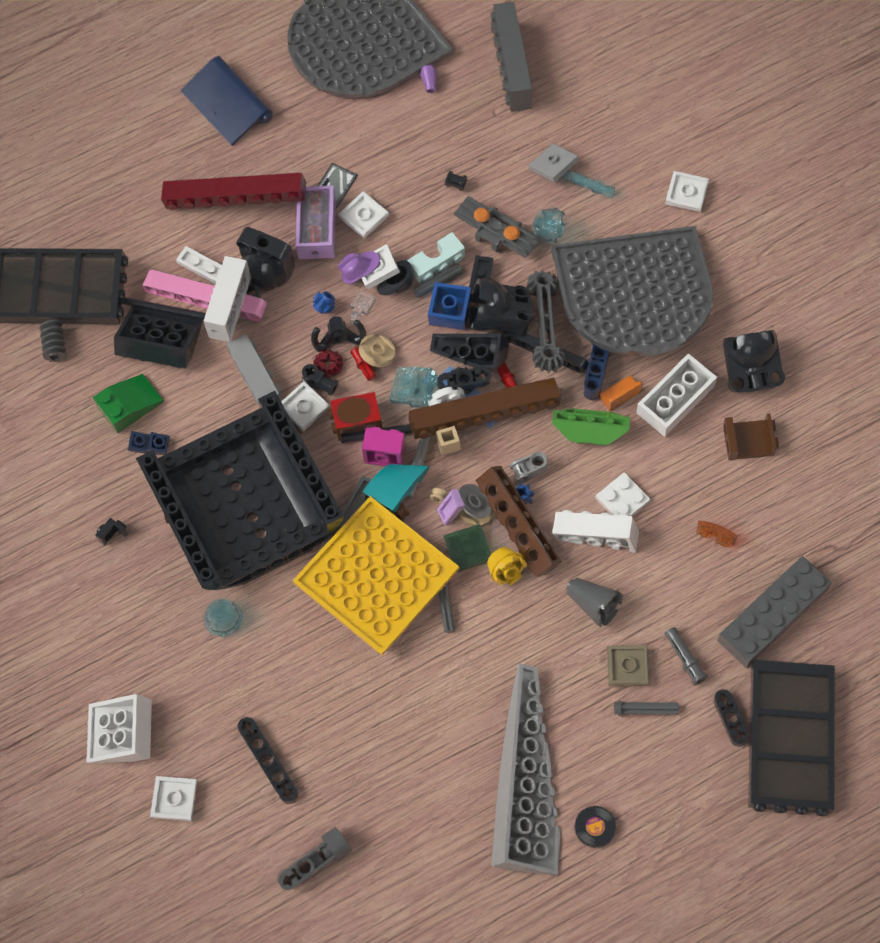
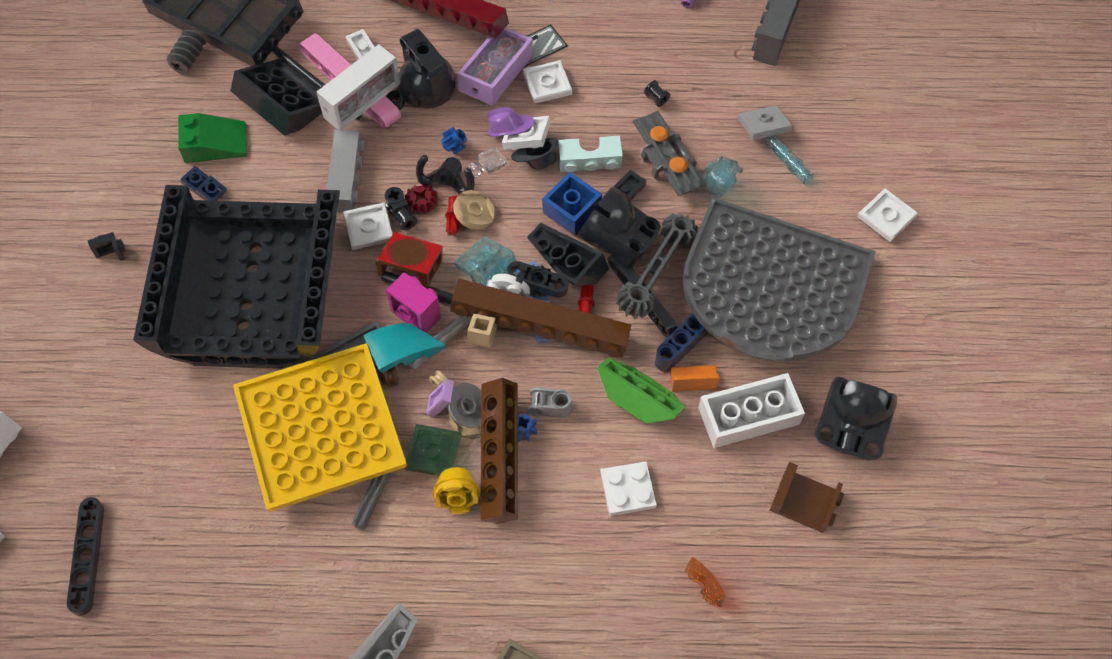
camera: 25 degrees right, 5 degrees down
(222, 617) = (147, 384): clear light blue cone -> none
(443, 277) = (585, 175): dark grey axle -> none
(595, 600) = (527, 581): dark grey cone -> none
(596, 529) = (577, 506): white wedge -> none

